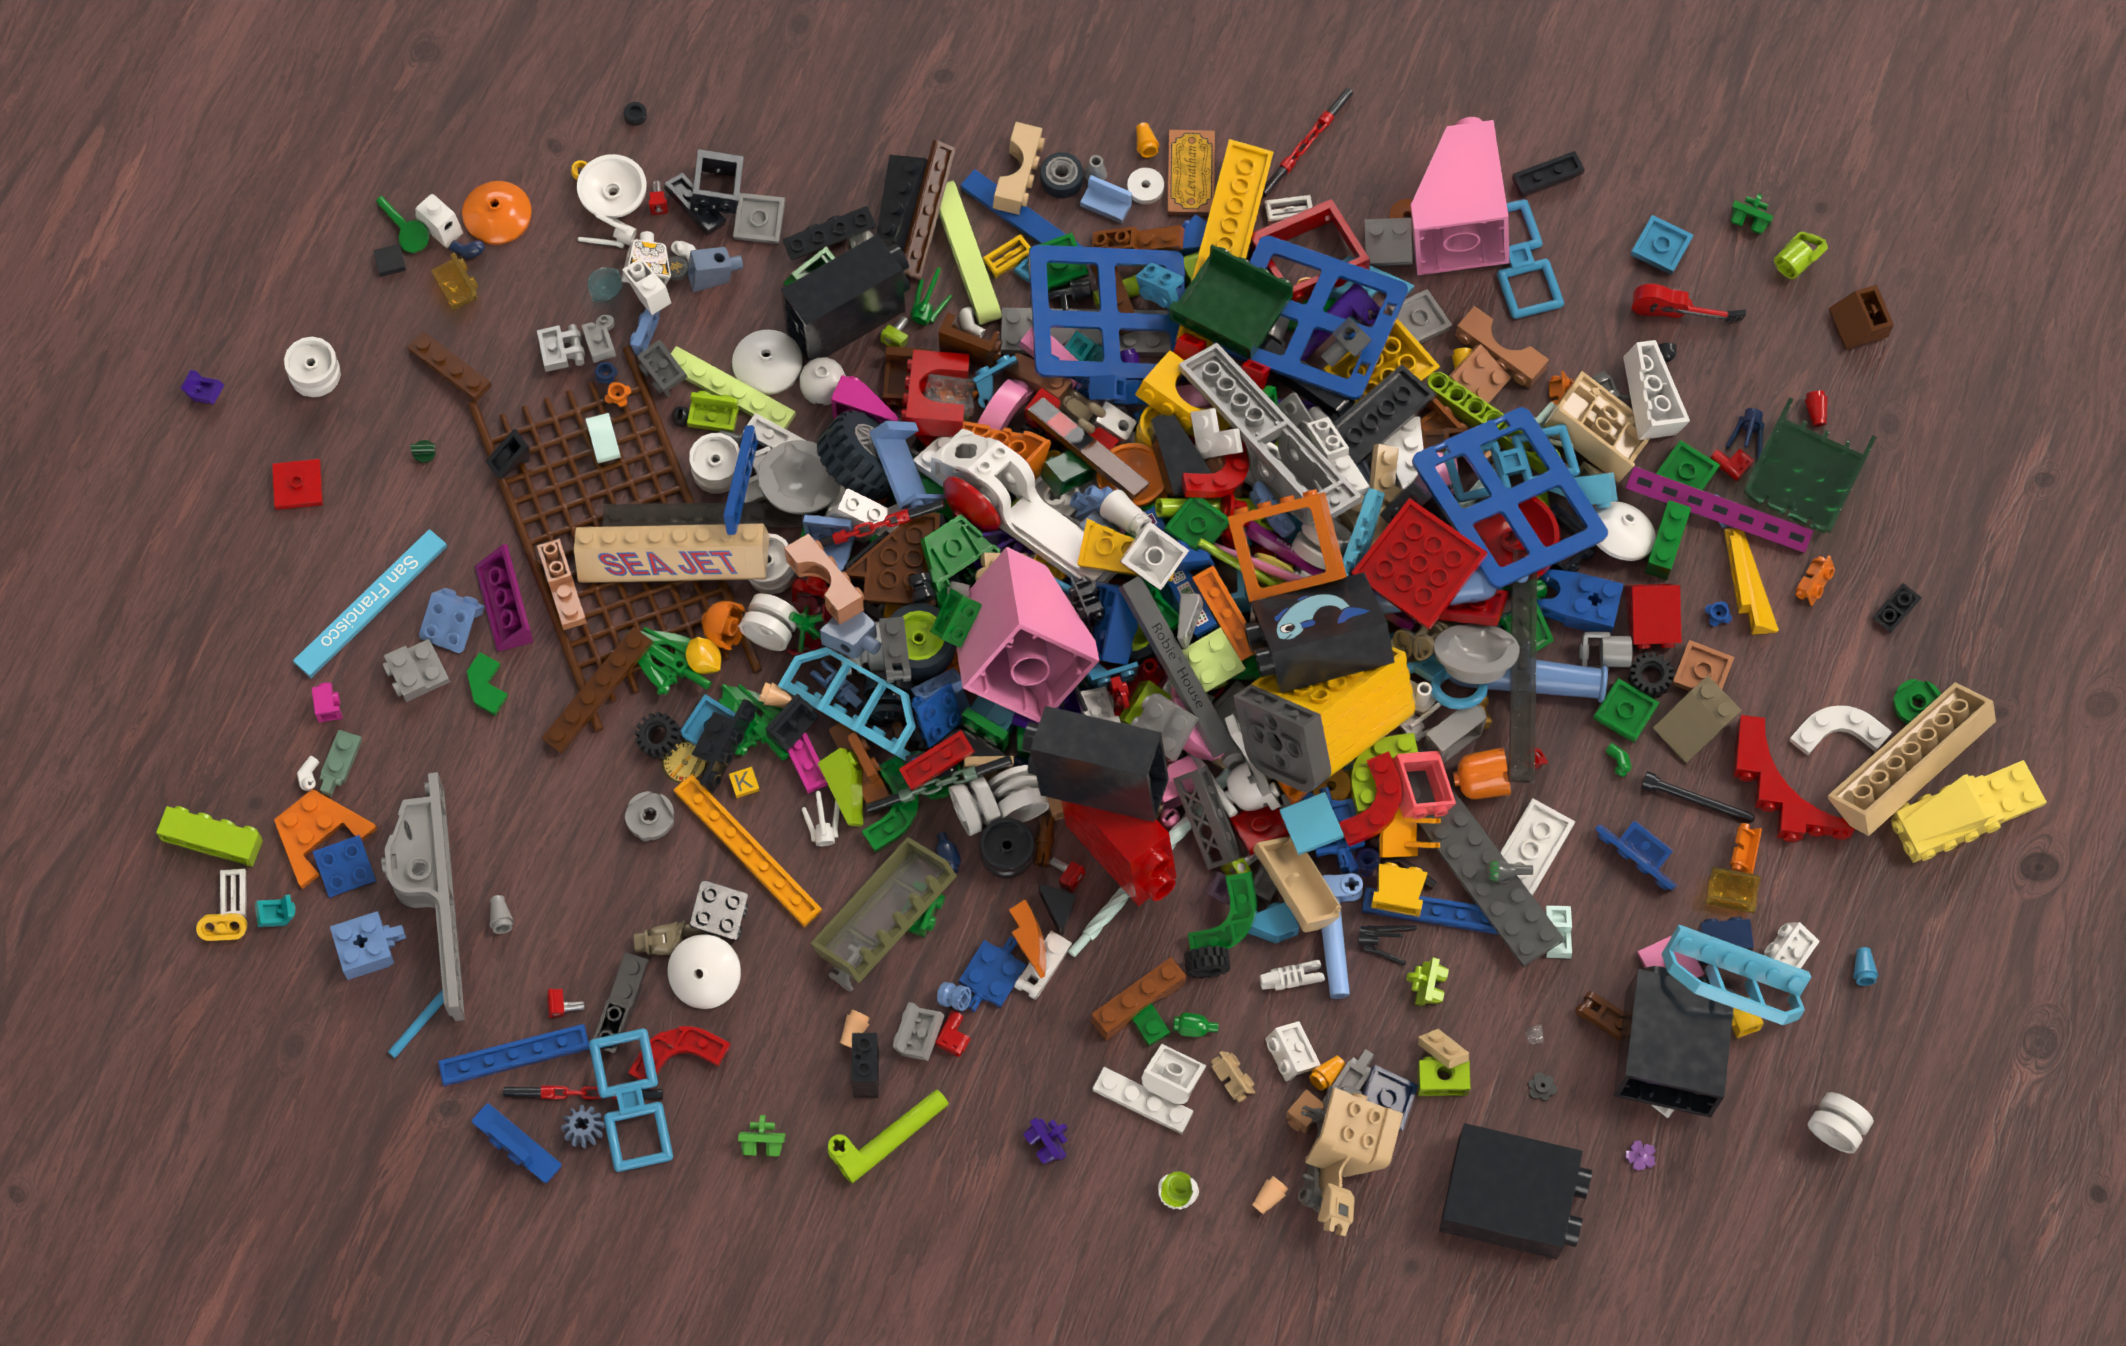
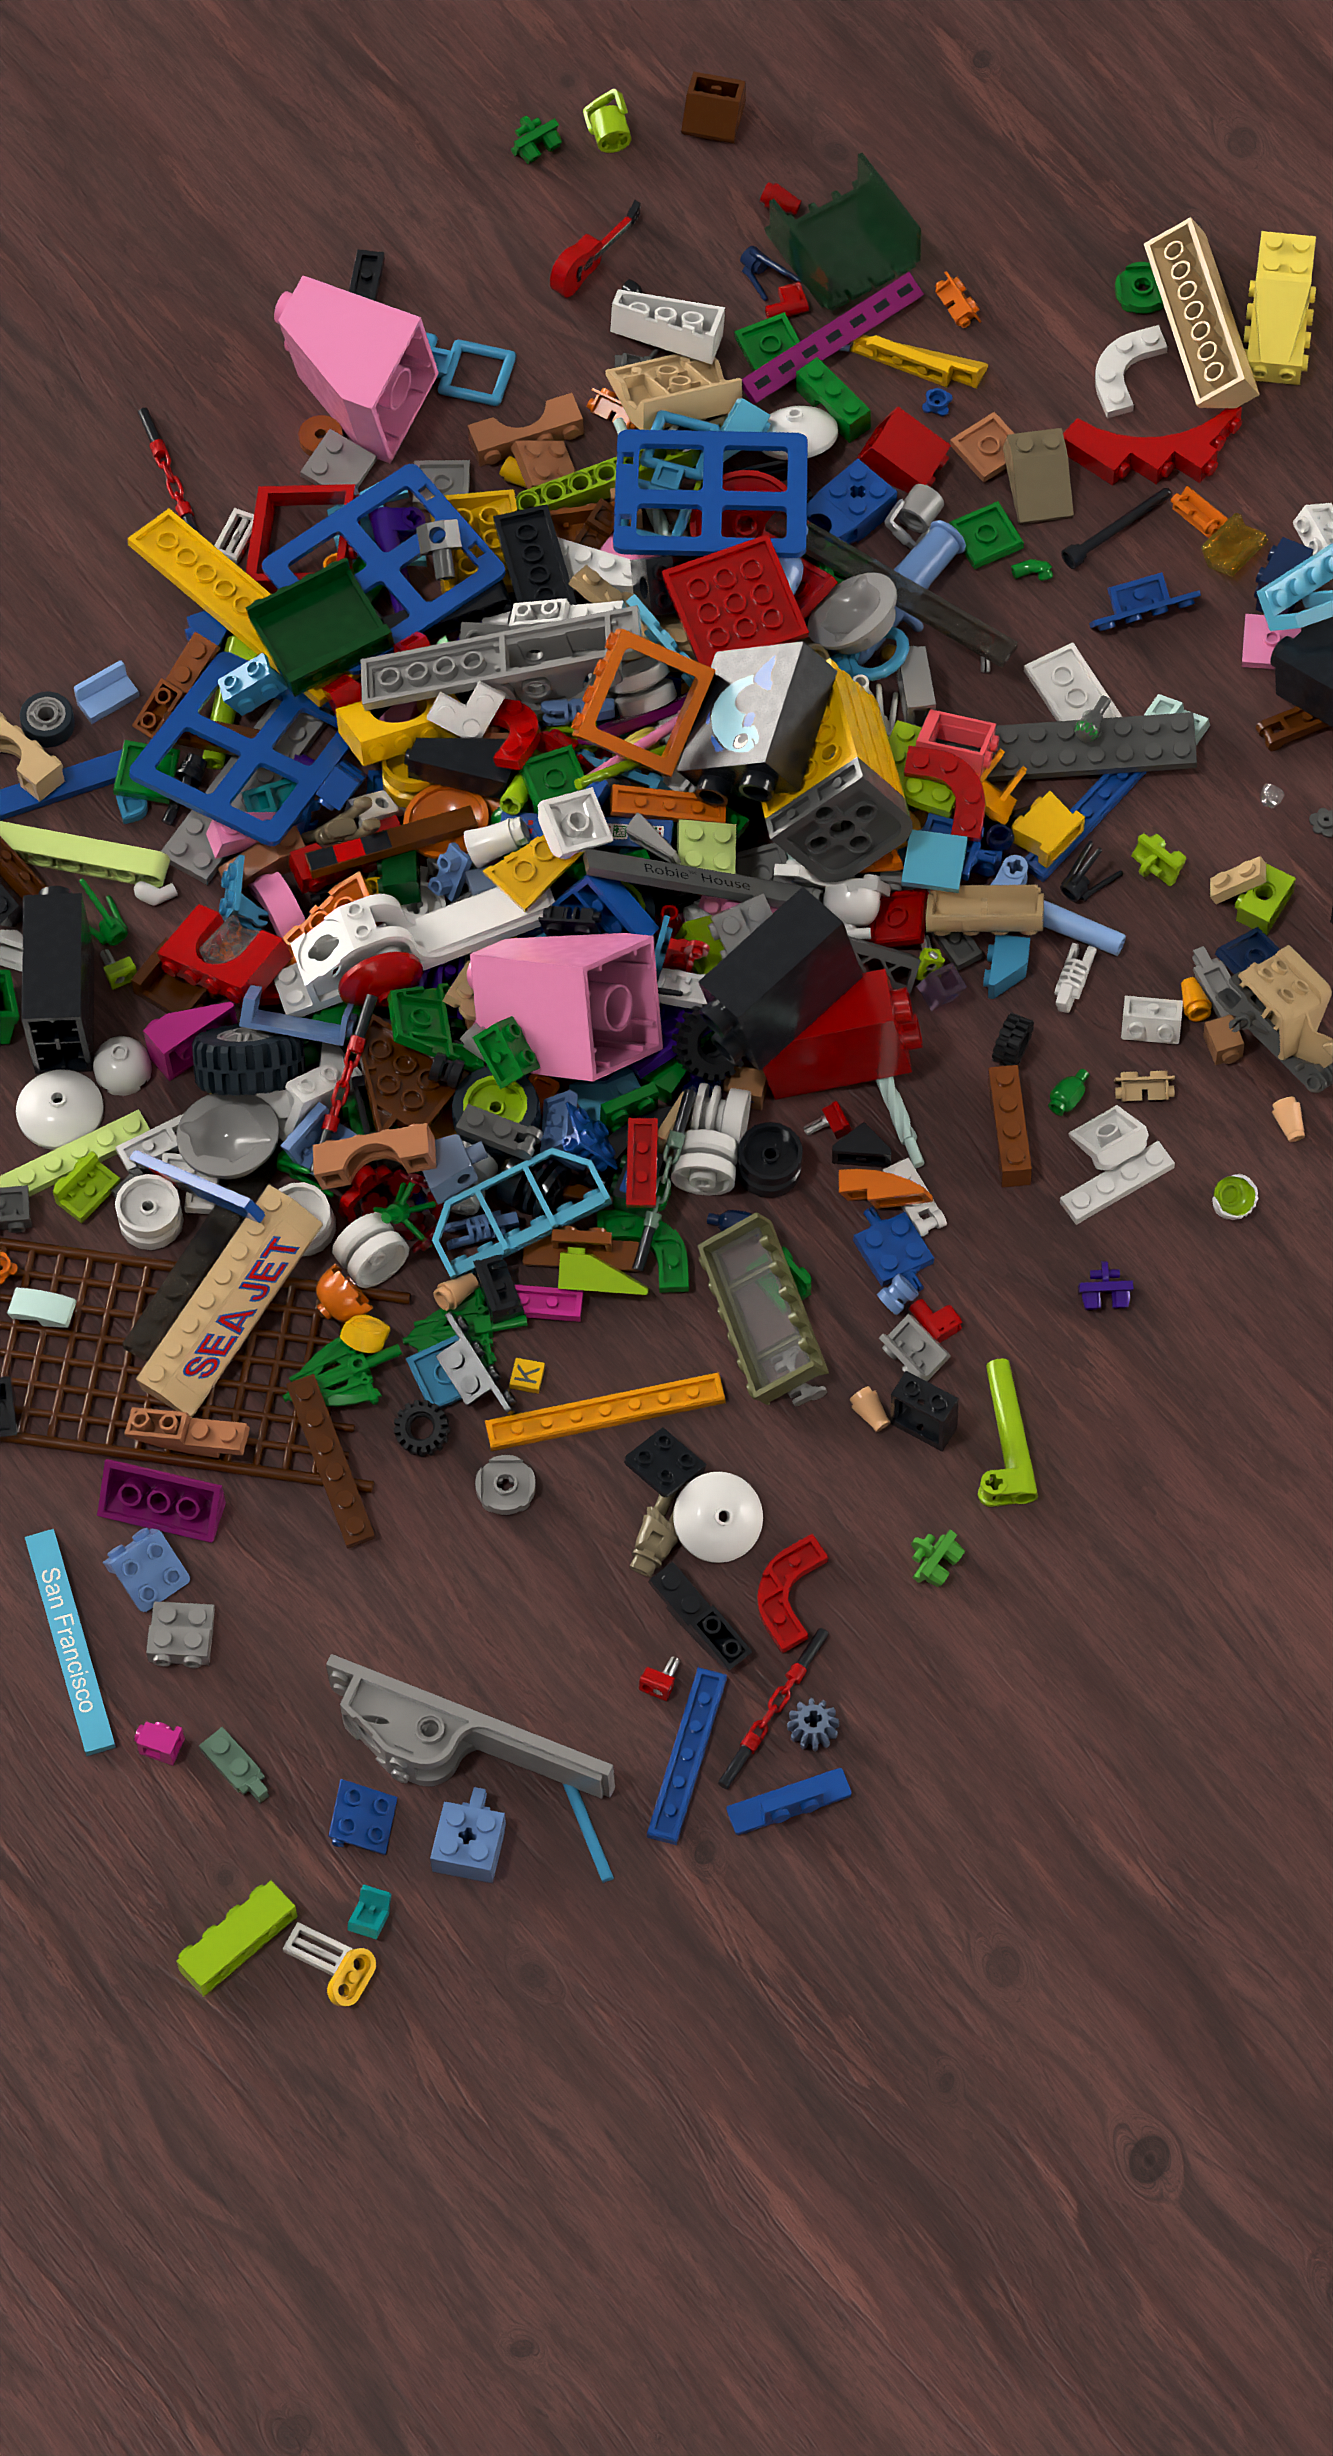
camera: 55 degrees left, 5 degrees down
(305, 774) = (228, 1807): white arm -> none
(311, 823) = (288, 1831): orange wing -> none
(484, 694) = (255, 1579): green tile -> none
(500, 916) = (522, 1688): light grey cone -> none
(630, 1100) = (814, 1660): dark azure bar -> none
(680, 423) = (61, 1227): black hinge -> none
(683, 763) = (466, 1424): clear yellow sticker -> none
(823, 834) = (636, 1326): white plant -> none
(981, 351) = (169, 913): reddish brown panel -> none
(1011, 263) = (101, 796): yellow tile -> none
(1044, 841) = (767, 1114): reddish brown pin -> none
(1096, 168) = (65, 682): light grey cone -> none
(1145, 195) = (112, 640): white piece -> none
(1146, 141) = (65, 621): light orange cone -> none
(1150, 1025) = (1044, 1133): green plate -> none
(1191, 172) = (130, 601): tile -> none
(1239, 920) = (991, 988): green plate -> none
(1483, 774) = (976, 687): orange cylinder -> none
(1656, 663) = (963, 480): black tyre -> none
(1662, 245) = (512, 233): dark azure plate -> none
(1897, 608) = (1032, 250): black slope -> none

